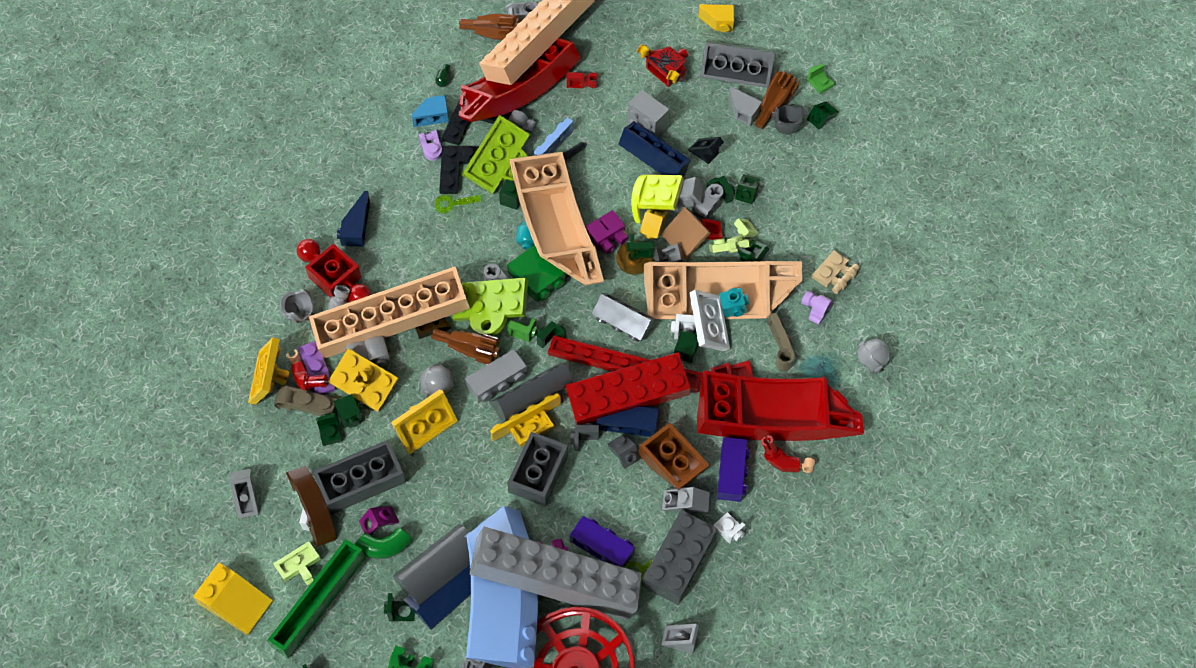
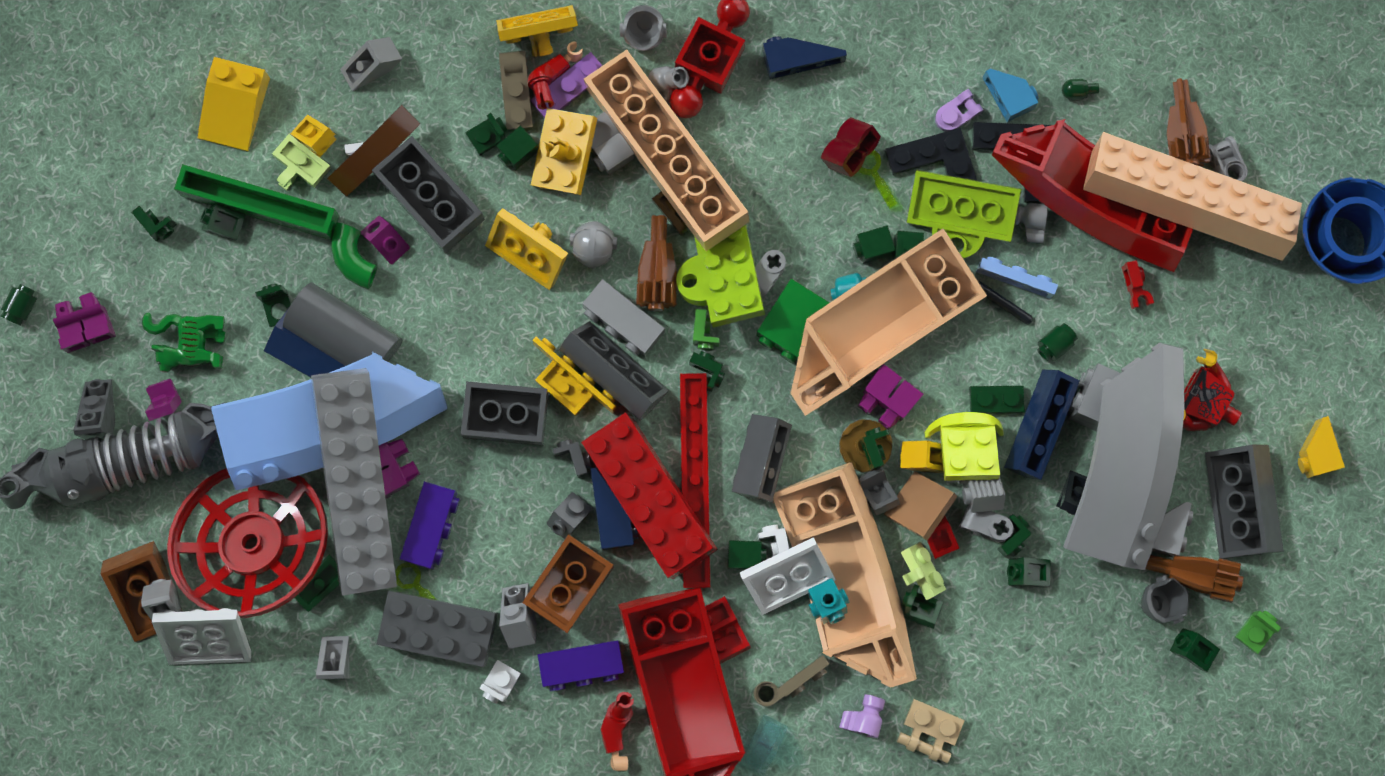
camera: 70 degrees right, 20 degrees up
(281, 544) = (314, 135): none -> yellow slope
(320, 631) = (222, 221): none -> dark green bracket
(430, 207) = (850, 147): none -> dark red brick
(501, 213) = (874, 244): none -> dark green brick
(603, 131) = (1056, 342): none -> dark green brick
(621, 649) = (321, 585): none -> dark green plate
(628, 175) = (996, 399): none -> dark green plate
(698, 101) = (1132, 461): none -> light grey slope
(745, 228) = (960, 587): yellowish green plate -> none

